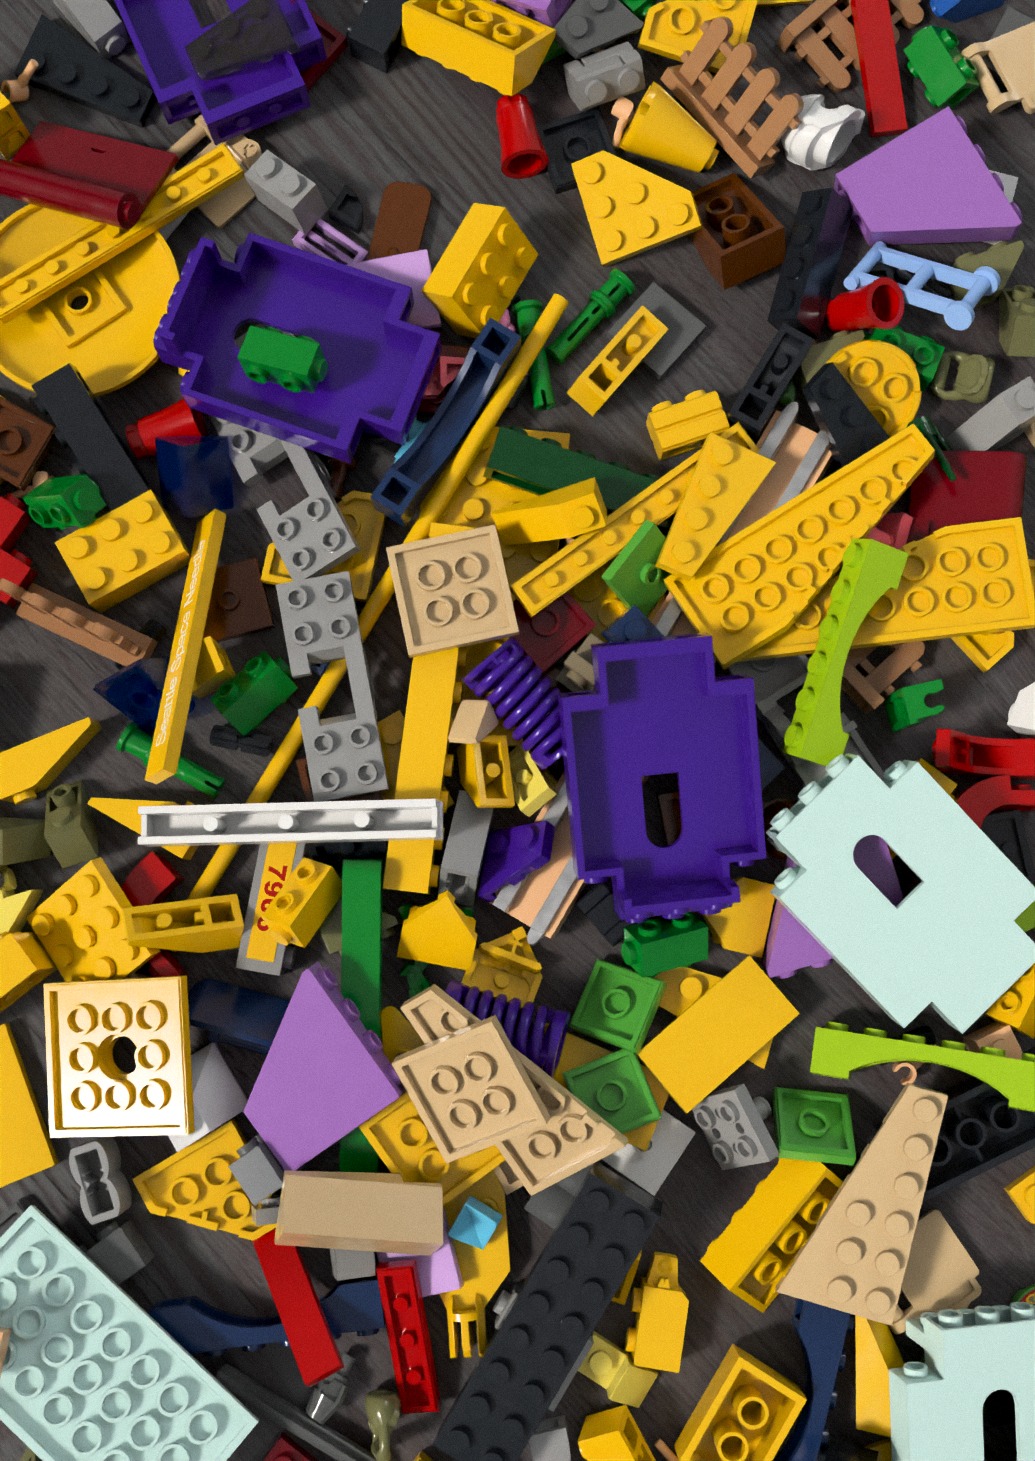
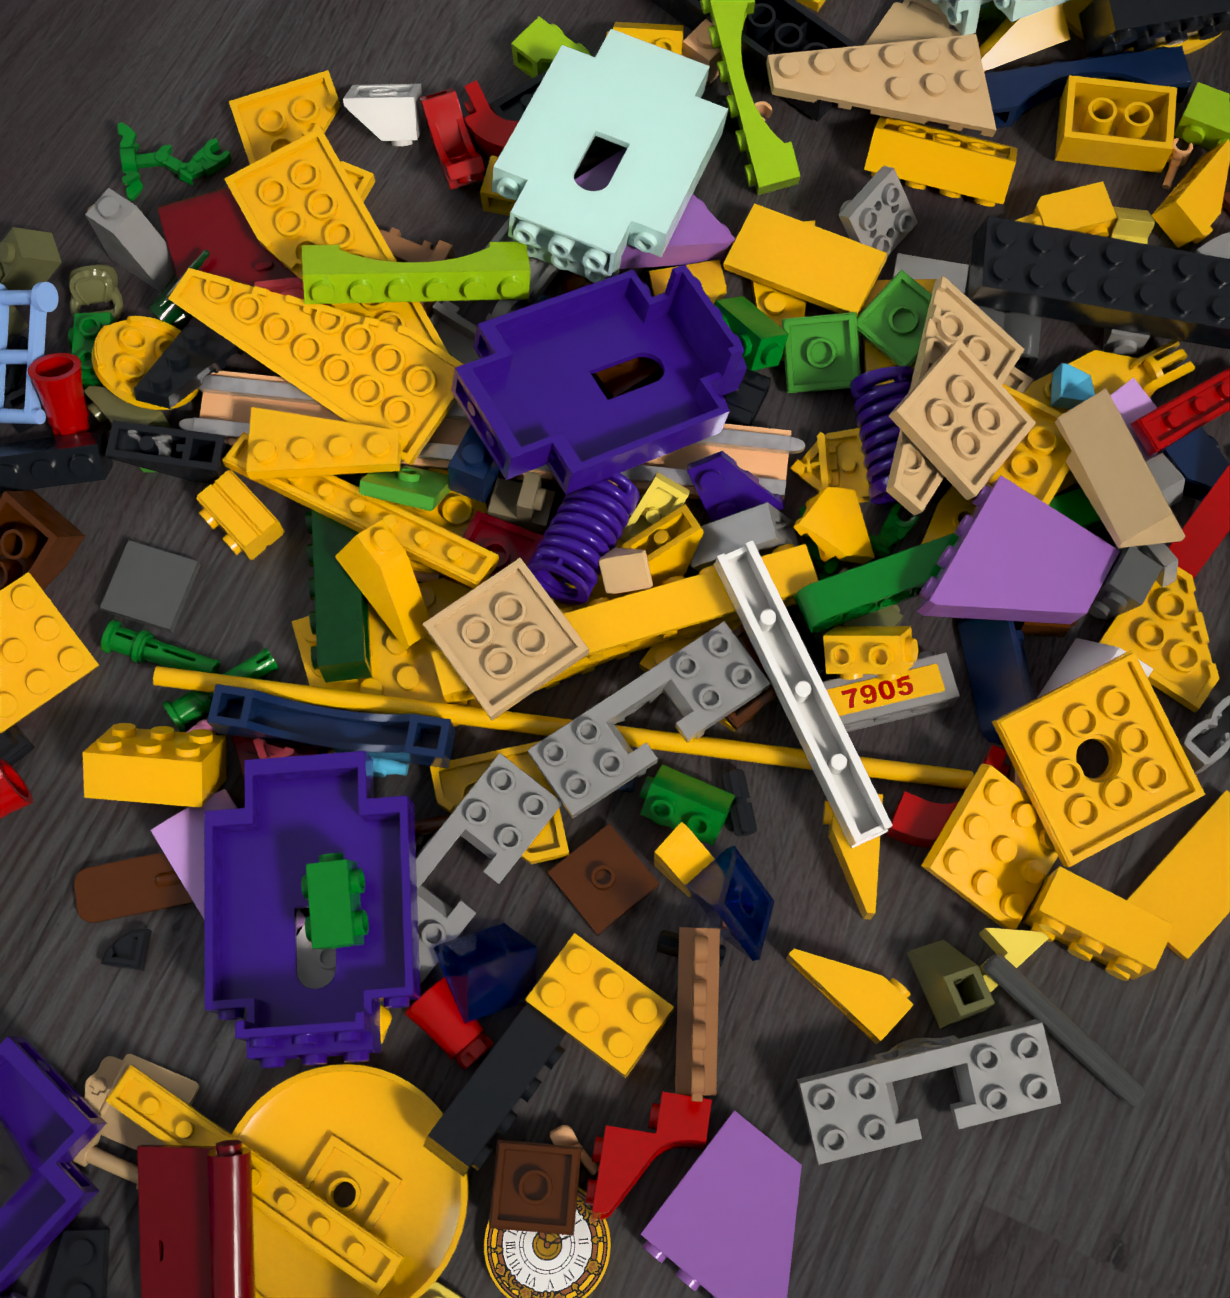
camera: 110 degrees left, 10 degrees down
(65, 502) = (576, 1086): green brick -> none
(70, 824) = (901, 929): olive slope -> none
(139, 745) = (791, 878): green pin -> none
(186, 649) = (674, 874): yellow tile -> none
(186, 925) = (942, 753): yellow slope -> none
(286, 191) = (135, 1016): light grey brick -> none
(299, 242) = (164, 946): lavender tile -> none
(617, 360) = (203, 602): yellow slope -> none
(813, 1126) = (843, 159): bright green plate -> none
(908, 707) = (436, 215): green hinge -> none

